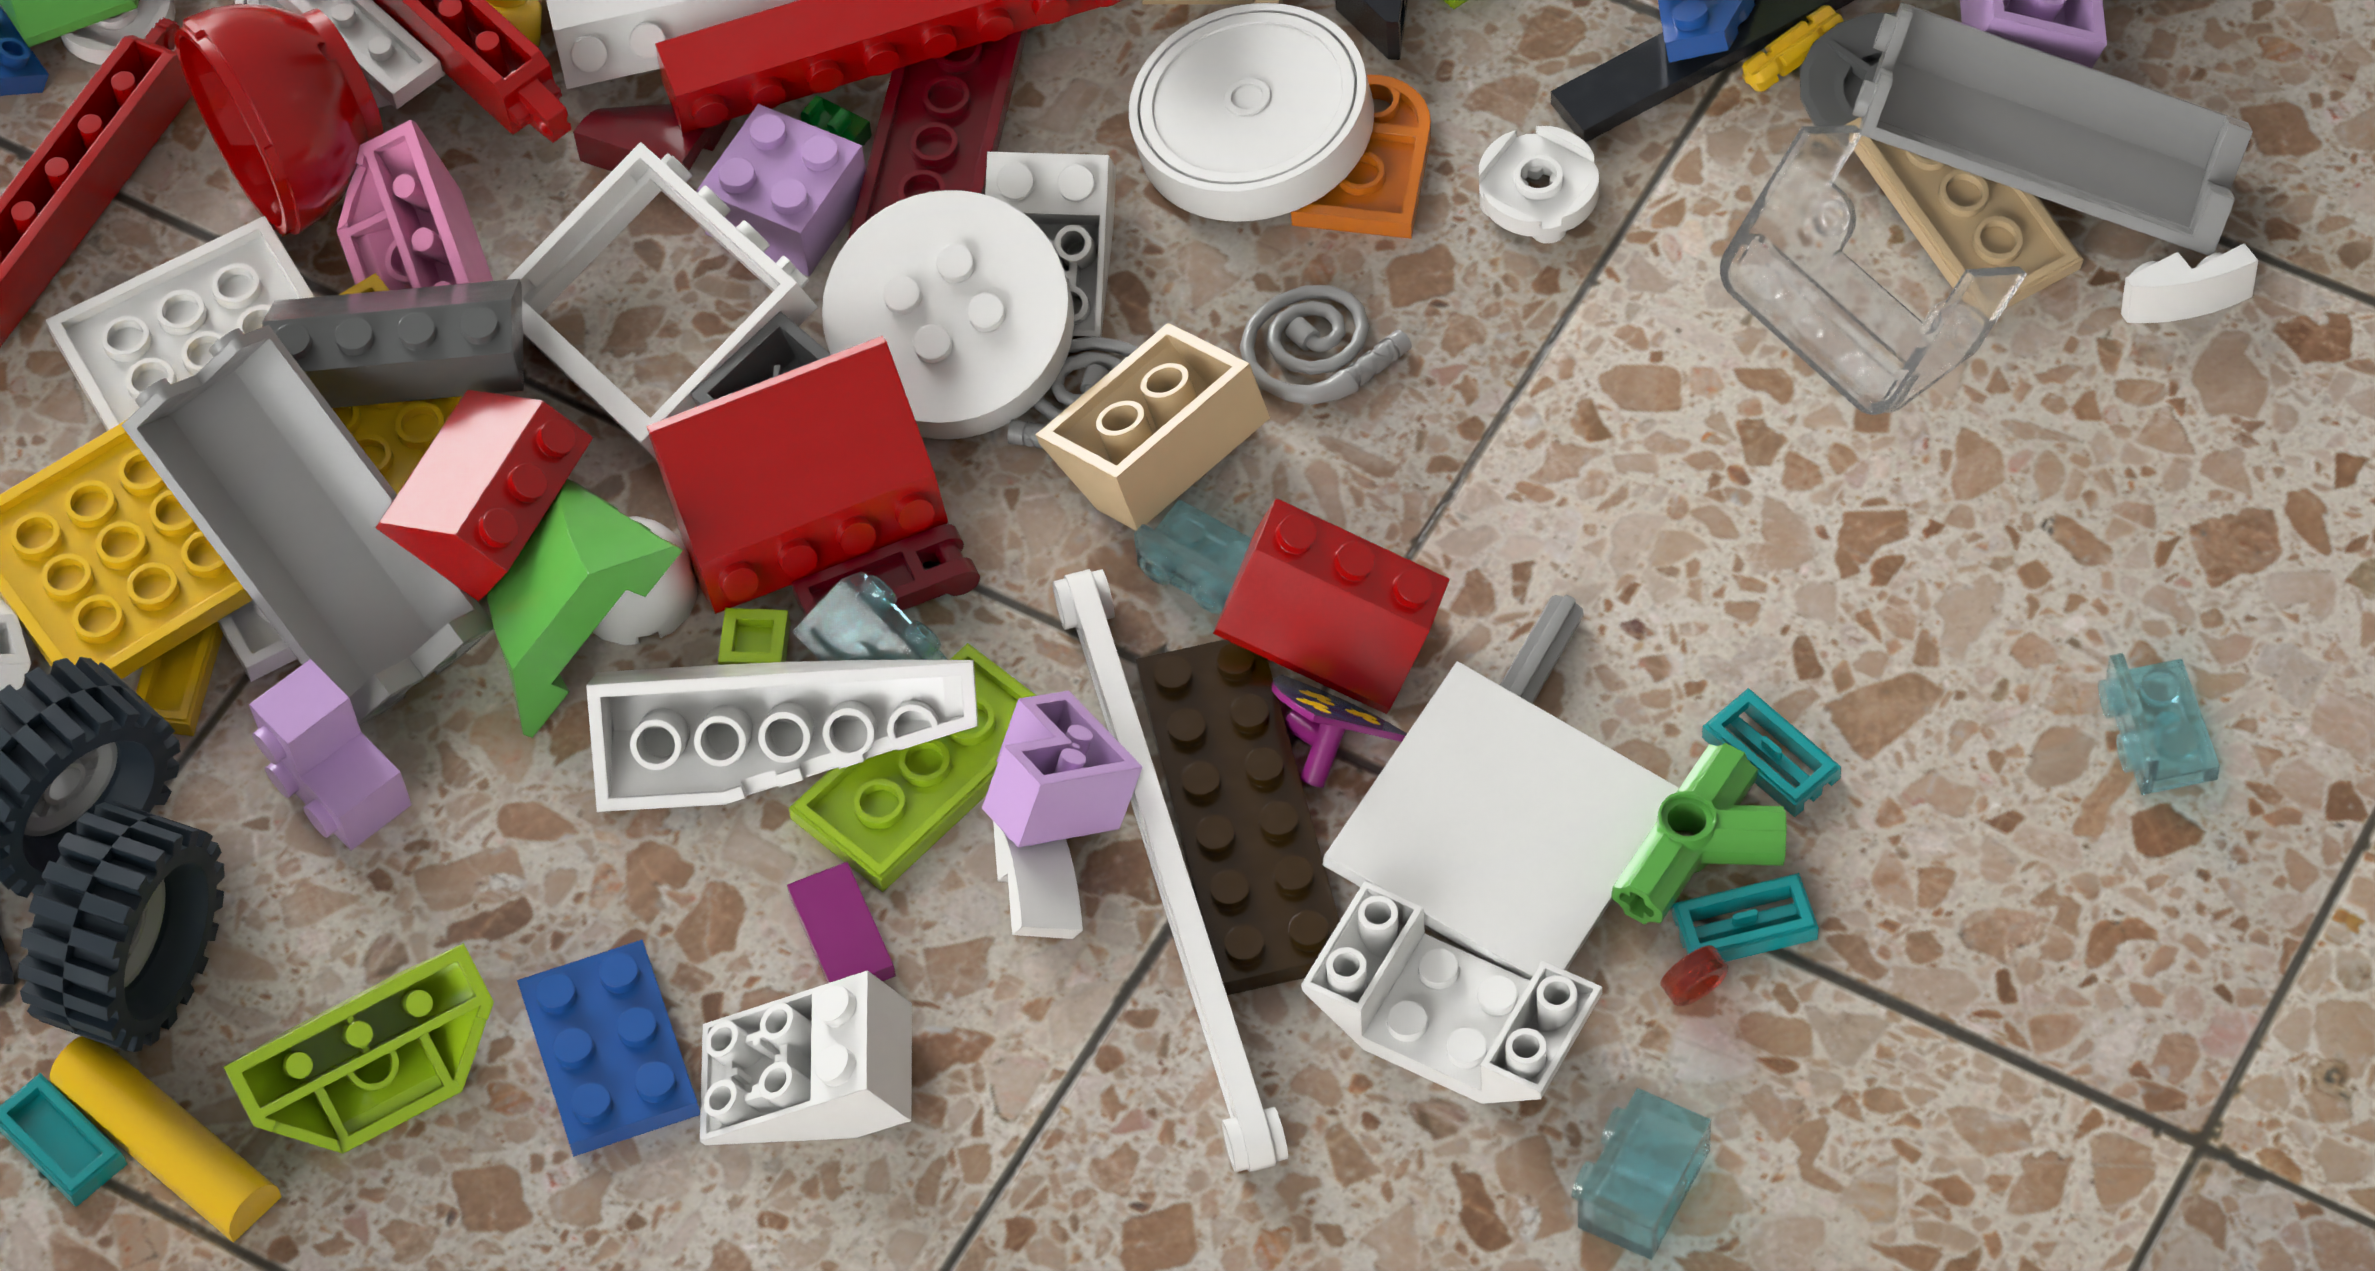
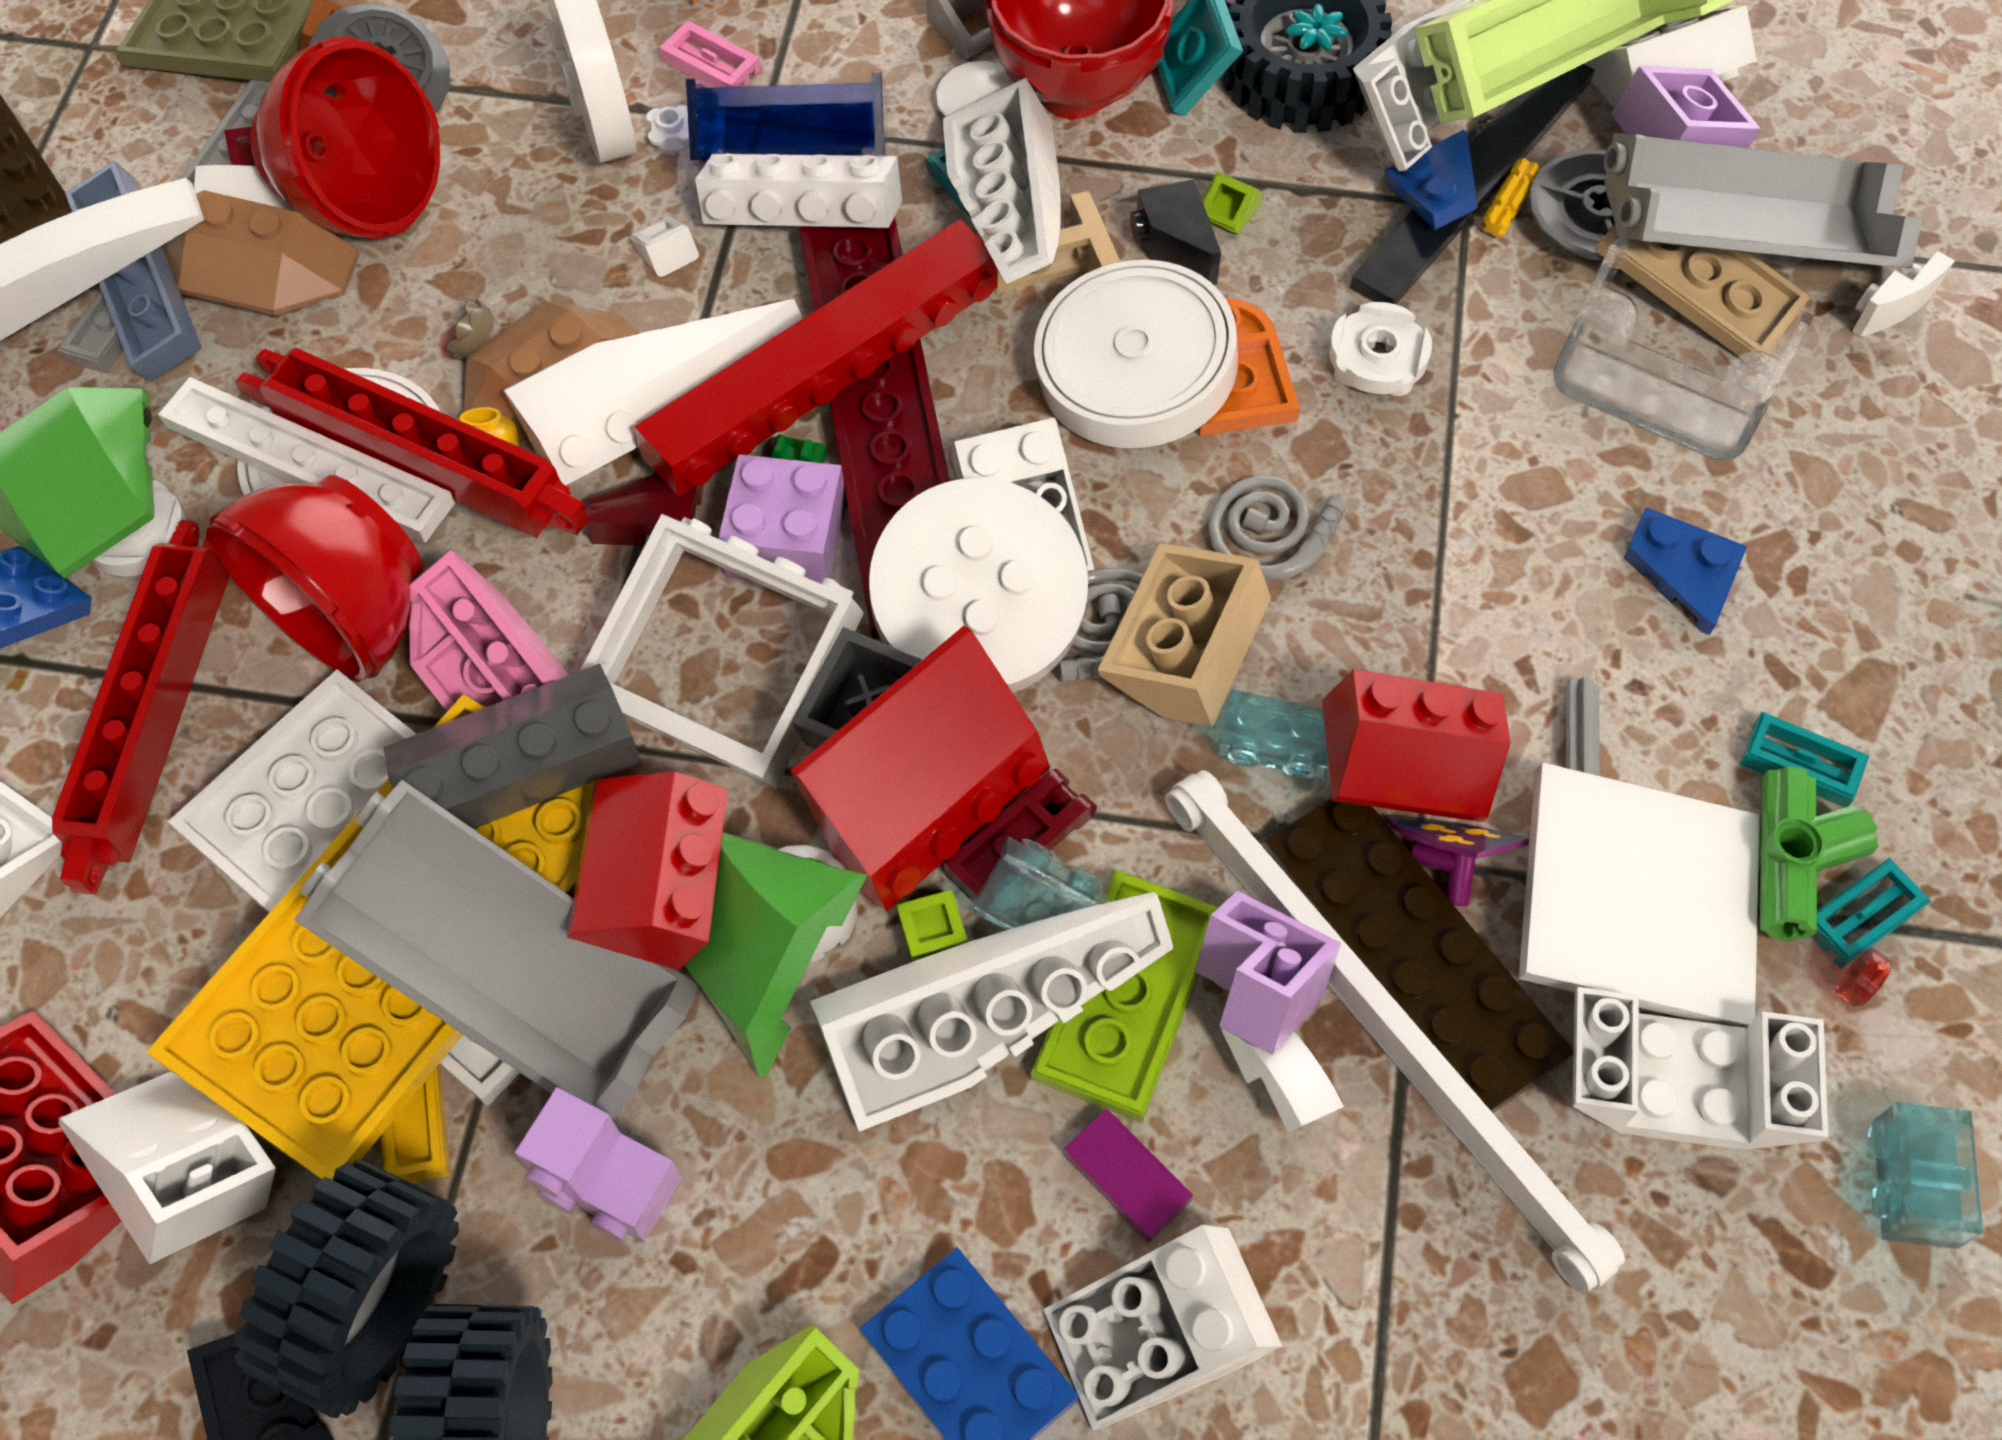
camera: 25 degrees left, 5 degrees up
(1761, 514) = (1686, 564): none -> blue wing

